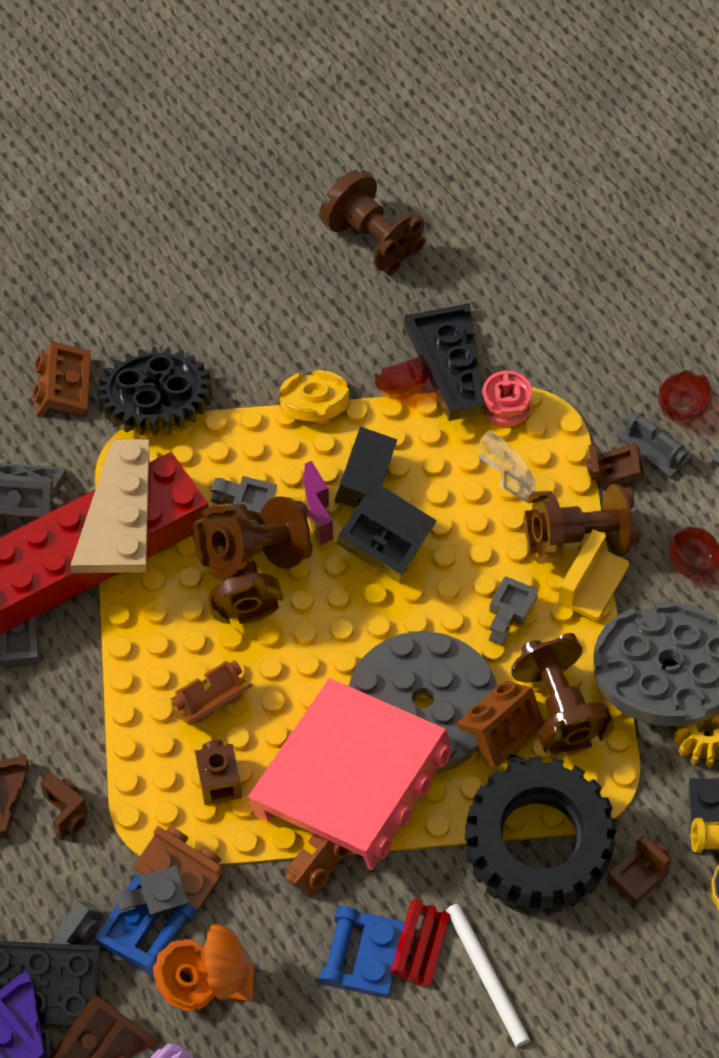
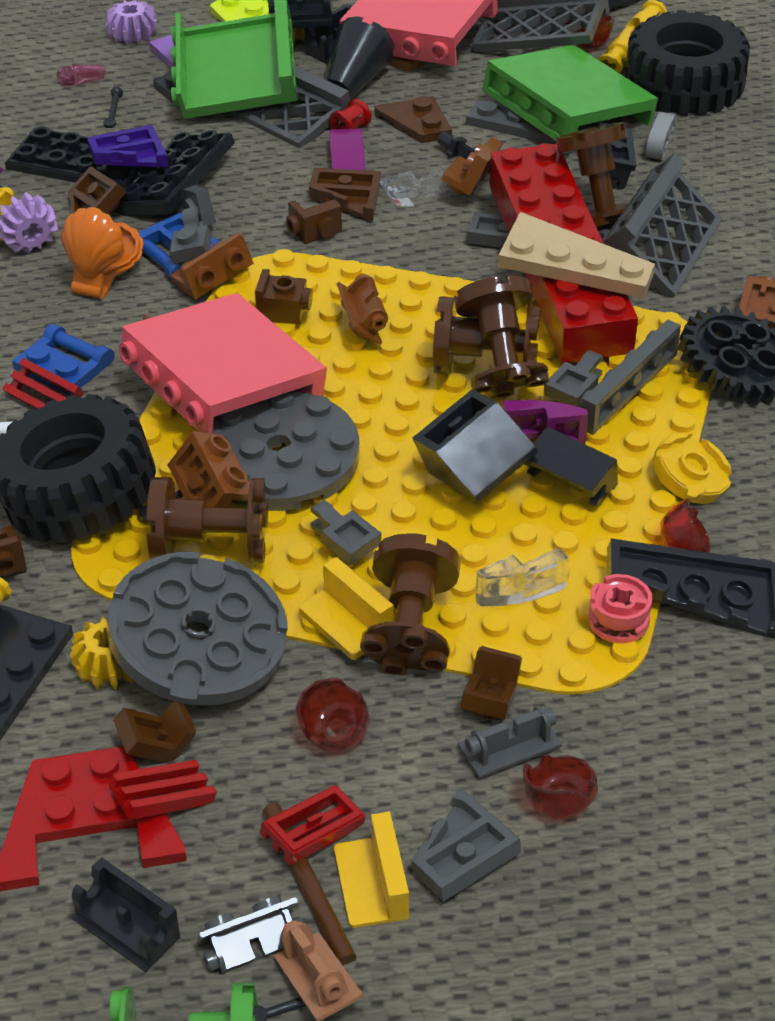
camera: 110 degrees right, 15 degrees down
(227, 456) = (630, 375): none -> dark grey plate

